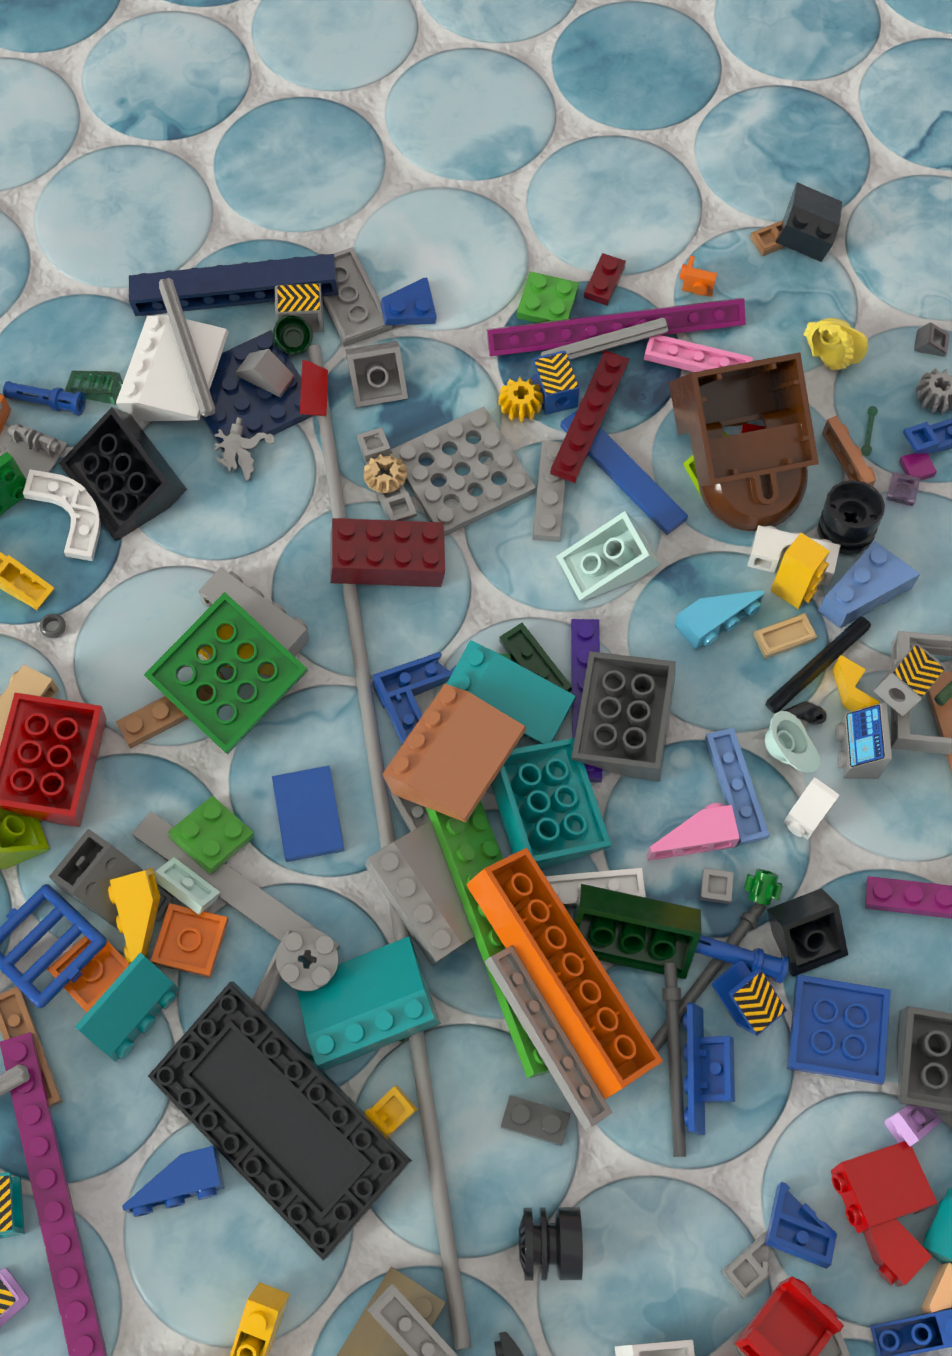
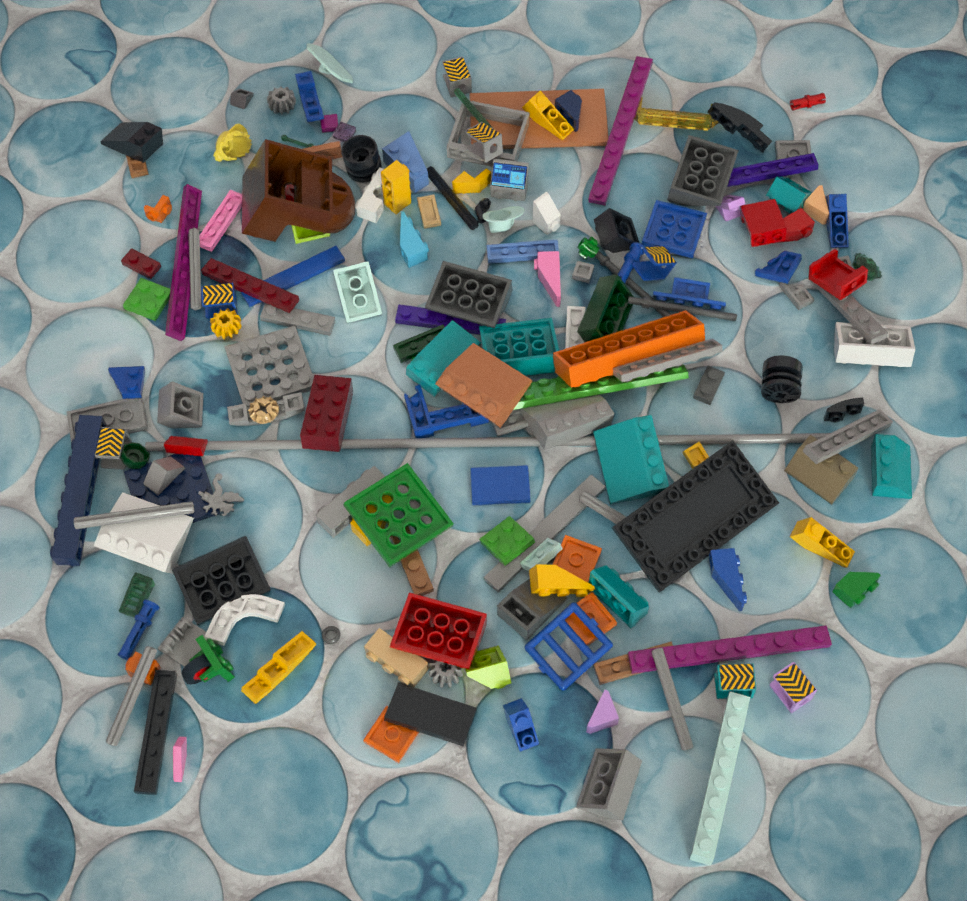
camera: 80 degrees left, 5 degrees down
(294, 946) = (604, 477): light grey plate -> none

